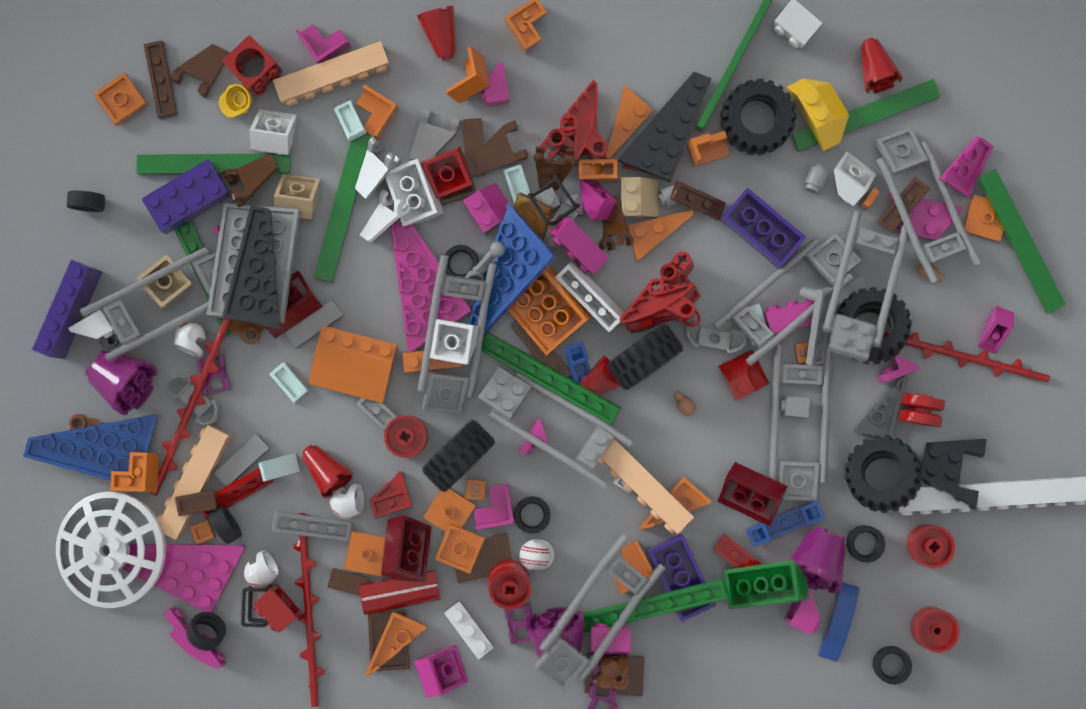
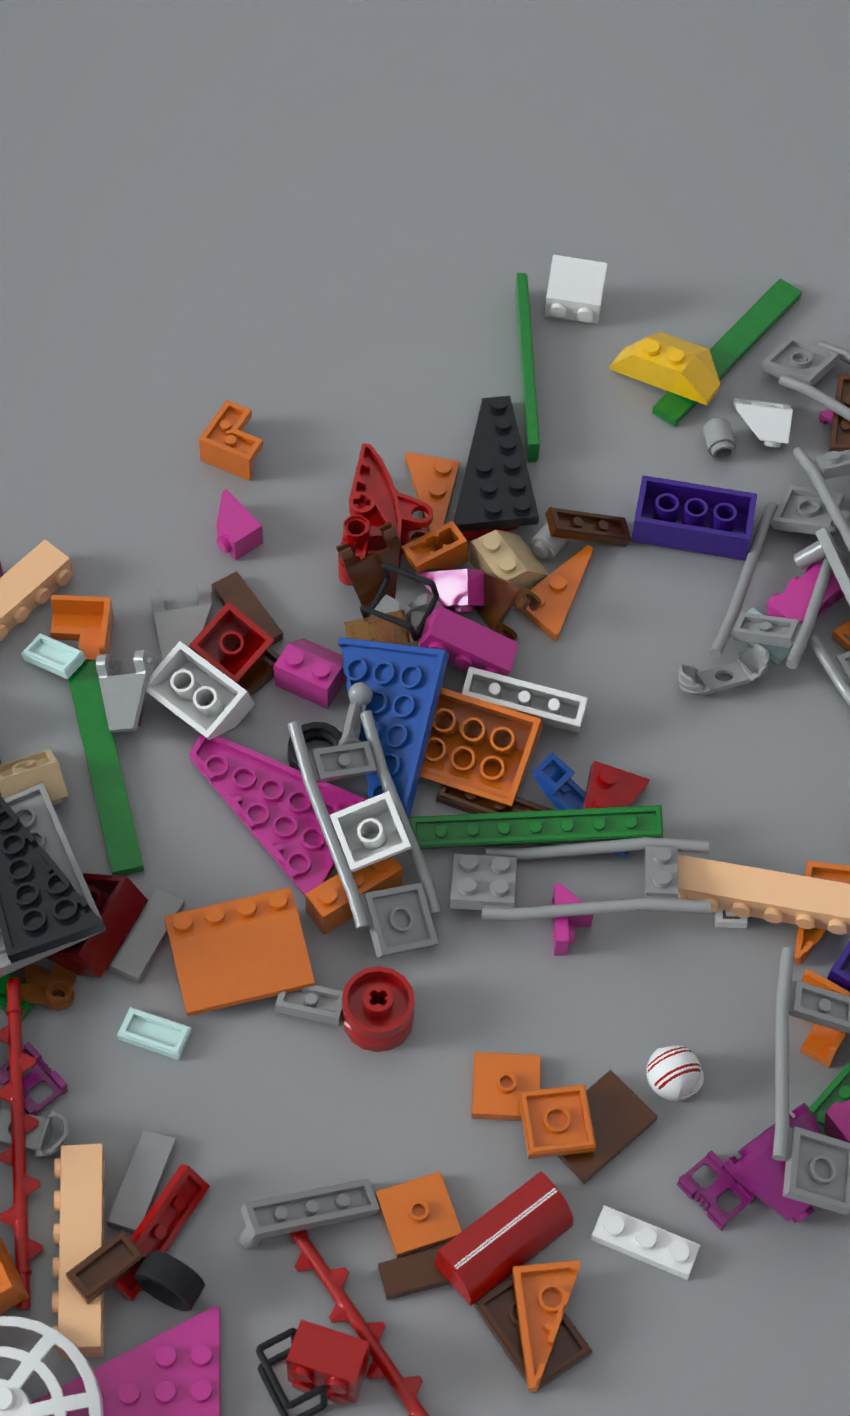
camera: 30 degrees left, 30 degrees down
(202, 531) = (136, 1323): orange tile -> none
(258, 573) = (264, 1321): white helmet -> none
(279, 467) = (208, 1152): light aqua tile -> none
(326, 470) = (285, 1118): red cone -> none
(344, 503) = (344, 1149): white helmet -> none
(383, 217) = (171, 742): white flag -> none
(391, 498) = (408, 1111): red wing -> none
(406, 549) = (476, 1161): dark red slope -> none
(440, 30) = (118, 494): red cone -> none
(441, 671) = (642, 1325): dark pink slope -> none
(458, 455) = (474, 976): black tyre -> none
(475, 489) = (525, 1035): orange tile -> none
(476, 78) = (199, 526): orange panel -> none
(497, 150) = (283, 598): reddish brown flag -> none
(499, 513) = (581, 1038): dark pink panel -> none
(509, 584) = (664, 1129): red wheel -> none
(516, 181) = (328, 622): light aqua tile -> none
(532, 529) = (634, 1001): black tyre -> none
(645, 356) = (650, 720): black tyre -> none
(668, 302) = (632, 654): red piece -> none
(685, 404) = (743, 773): nougat cylinder -> none
(708, 148) = (556, 467): orange panel -> none
(742, 377) = (793, 703): red slope -> none
(773, 97) = (605, 377): black tyre -> none
(869, 198) = (801, 428): orange tile -> none
(878, 67) = (707, 292): red cone -> none

